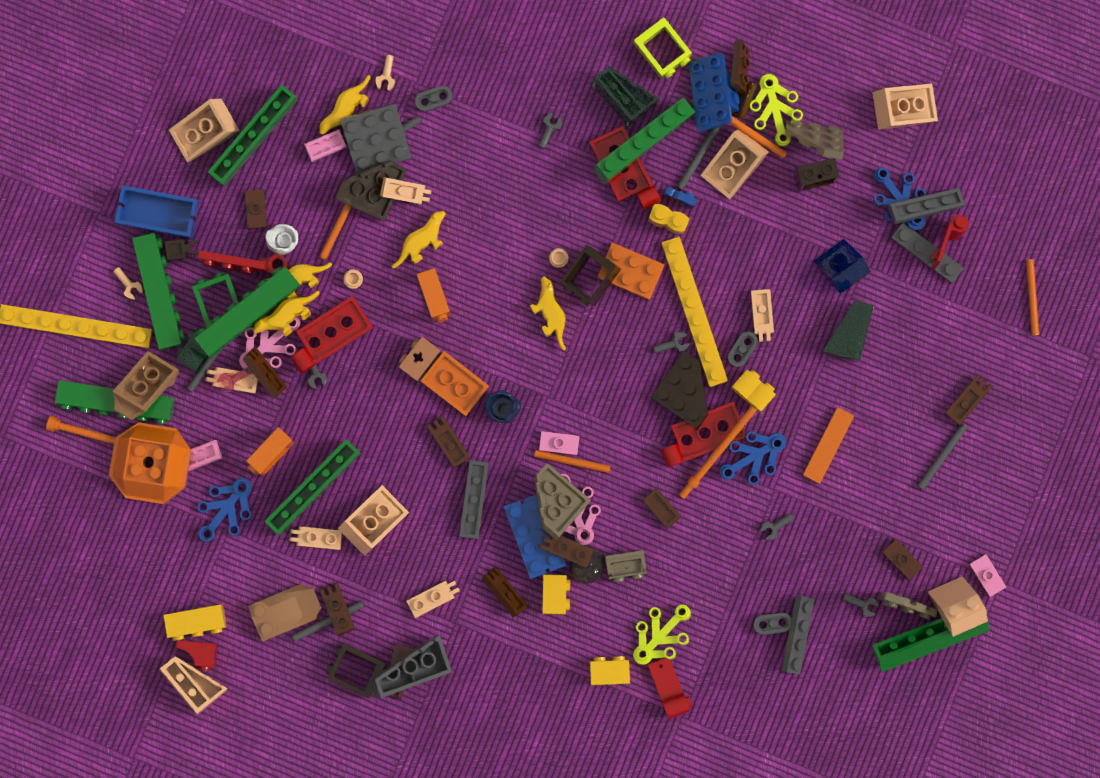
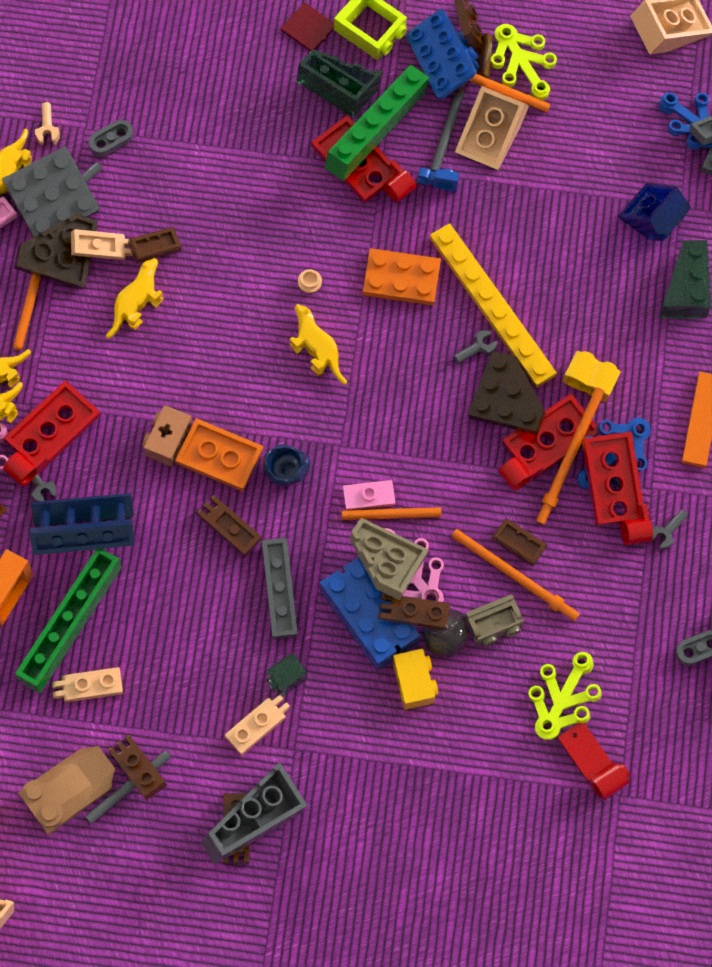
camera: 15 degrees left, 15 degrees down
(332, 669) = (153, 823): dark brown window -> none
(337, 430) = (82, 536): none -> dark blue fence
(353, 279) = (61, 363): light nougat plate -> none
(373, 520) = (155, 645): light nougat slope -> none
(434, 295) = (167, 353): orange window -> none
(446, 198) = (154, 244): none -> reddish brown plate
(462, 567) = (286, 674): none -> clear green brick
(504, 592) = (349, 692): reddish brown hinge -> none
(549, 130) = (260, 140): dark grey bar -> none
(576, 268) = (344, 263): dark brown window -> none
(609, 672) = (511, 758): yellow brick -> none
(613, 37) = (308, 27): none -> dark red piece
(663, 217) = (430, 205): yellow brick -> none
(675, 561) = (555, 602): none -> orange bar
(742, 349) = (563, 334): dark grey plate -> none
(752, 513) = (635, 521): none -> red hinge
(762, 313) = (575, 286): light nougat hinge -> none
(823, 172) = (585, 113): dark brown window -> none
(825, 139) = (597, 72): dark tan plate -> none

